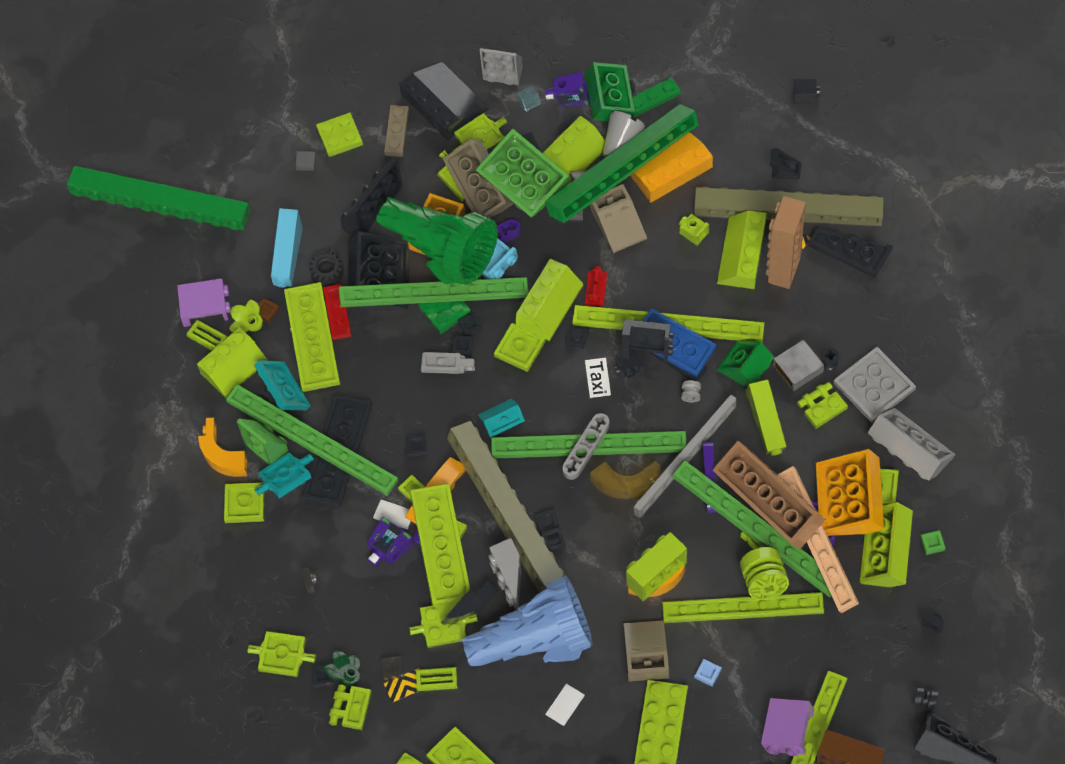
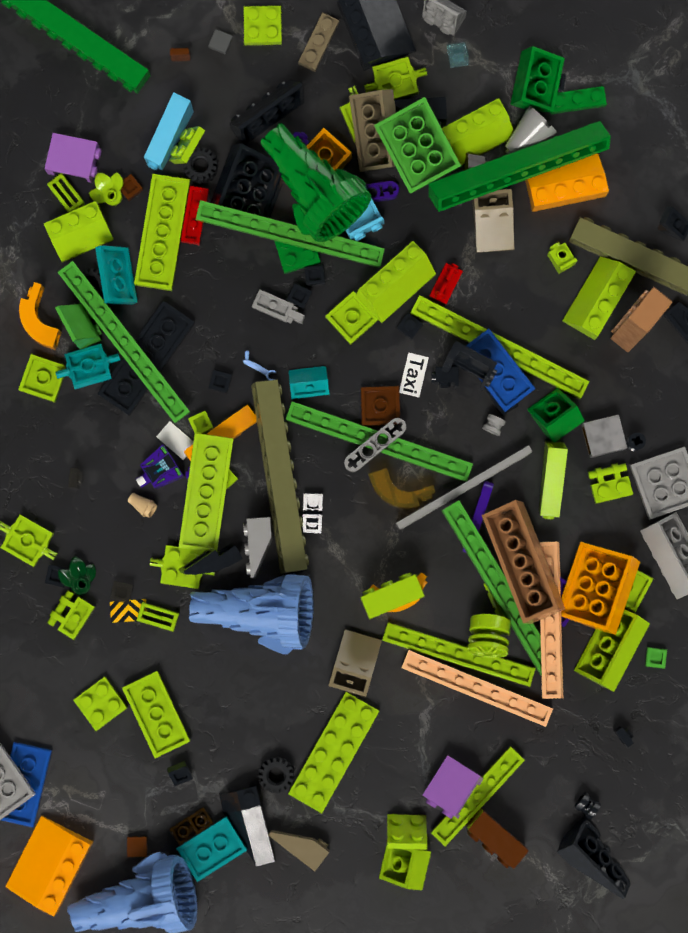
camera: 15 degrees right, 20 degrees up
(272, 182) = (180, 54): none -> reddish brown tile
(307, 252) = (187, 144): none -> lime plate
(384, 581) = (143, 505): none -> tan cone
(437, 420) = (257, 367): none -> light blue piece
(565, 704) = (264, 684): white sticker -> none
(569, 90) = (499, 64): dark purple torso -> none
(575, 412) = (379, 405): none -> reddish brown plate
(708, 672) = (402, 704): light blue tile -> none
(773, 630) = (477, 688): none -> light nougat plate

